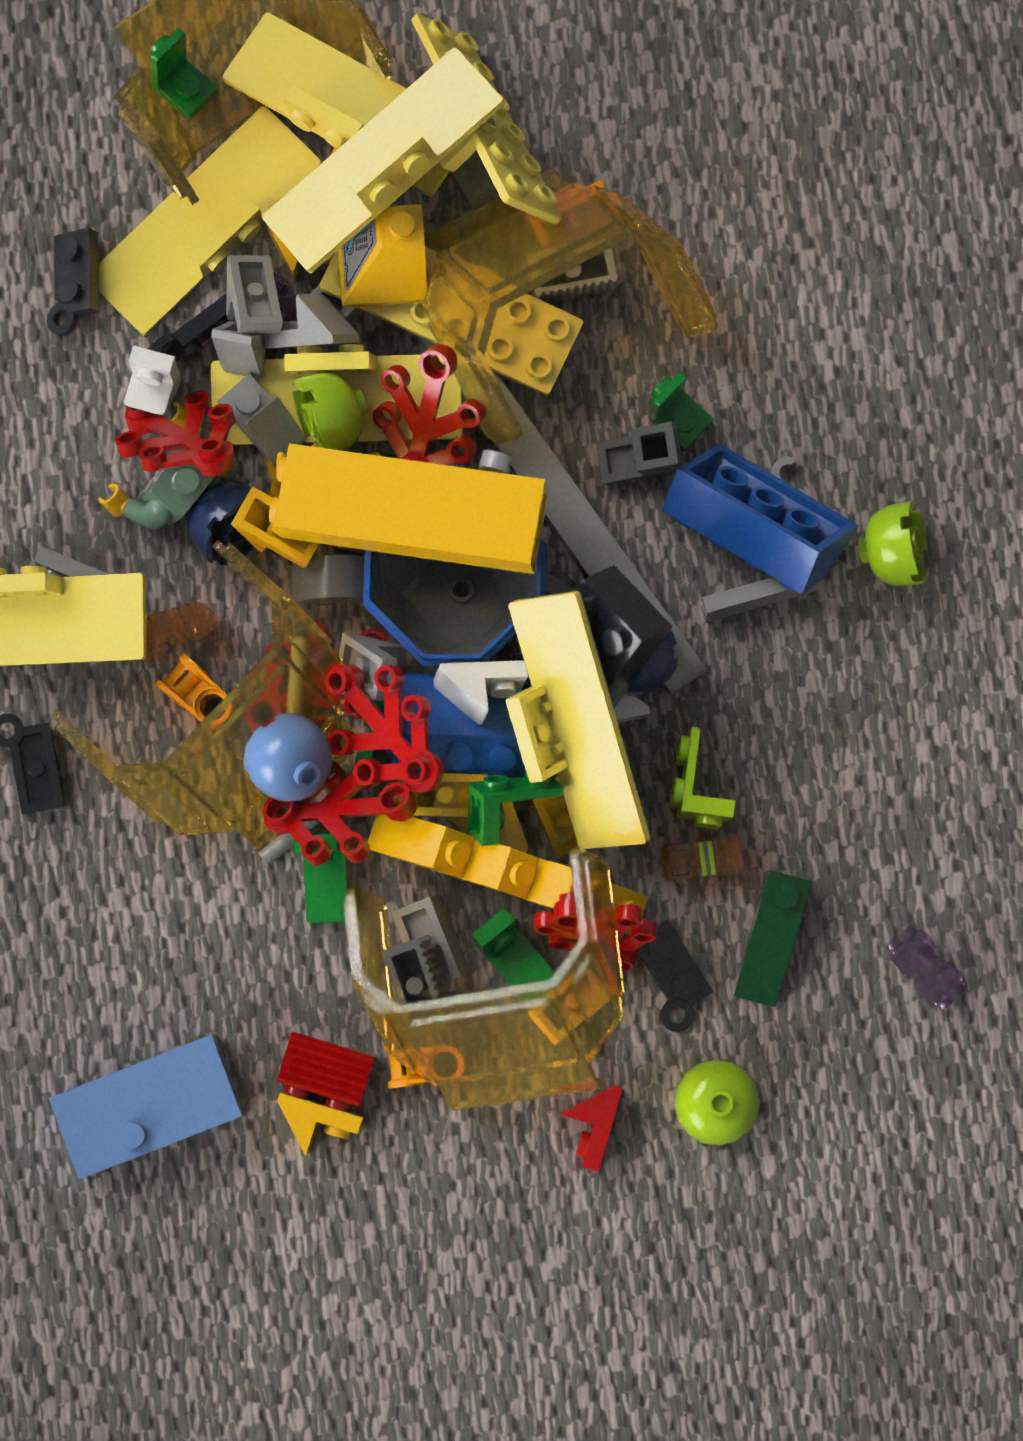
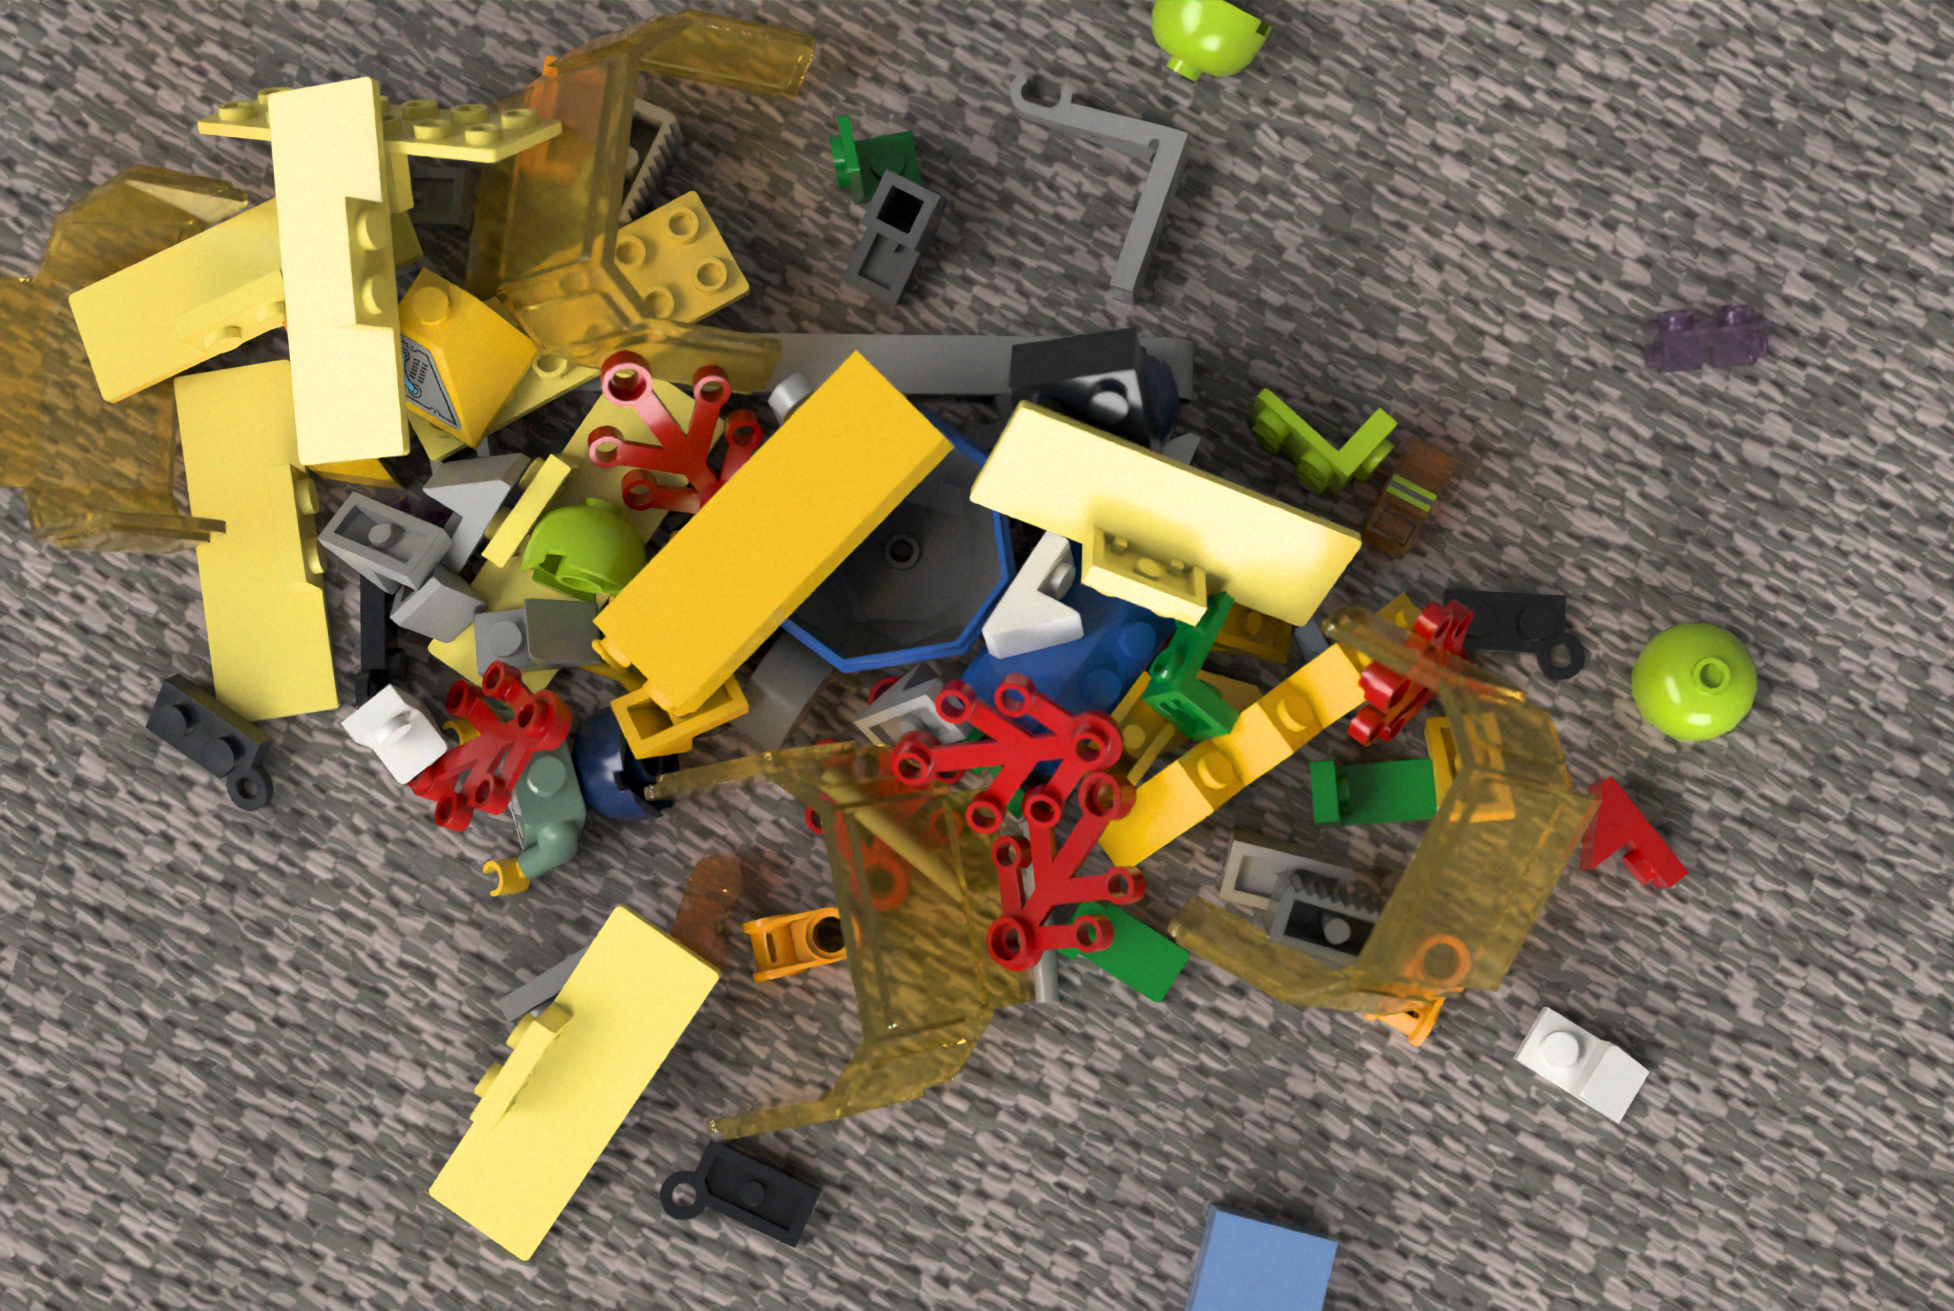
camera: 45 degrees left, 0 degrees up
(177, 78) = (65, 454): green bracket -> none
(288, 758) = (960, 888): medium blue cylinder -> none
(305, 1115) = (1381, 1162): yellow slope -> none
(326, 1071) = (1347, 1104): red brick -> none
(446, 1192) = (1582, 1064): none -> white slope
(758, 517) = (1065, 156): blue slope -> none
(771, 937) = (1549, 483): dark green slope -> none

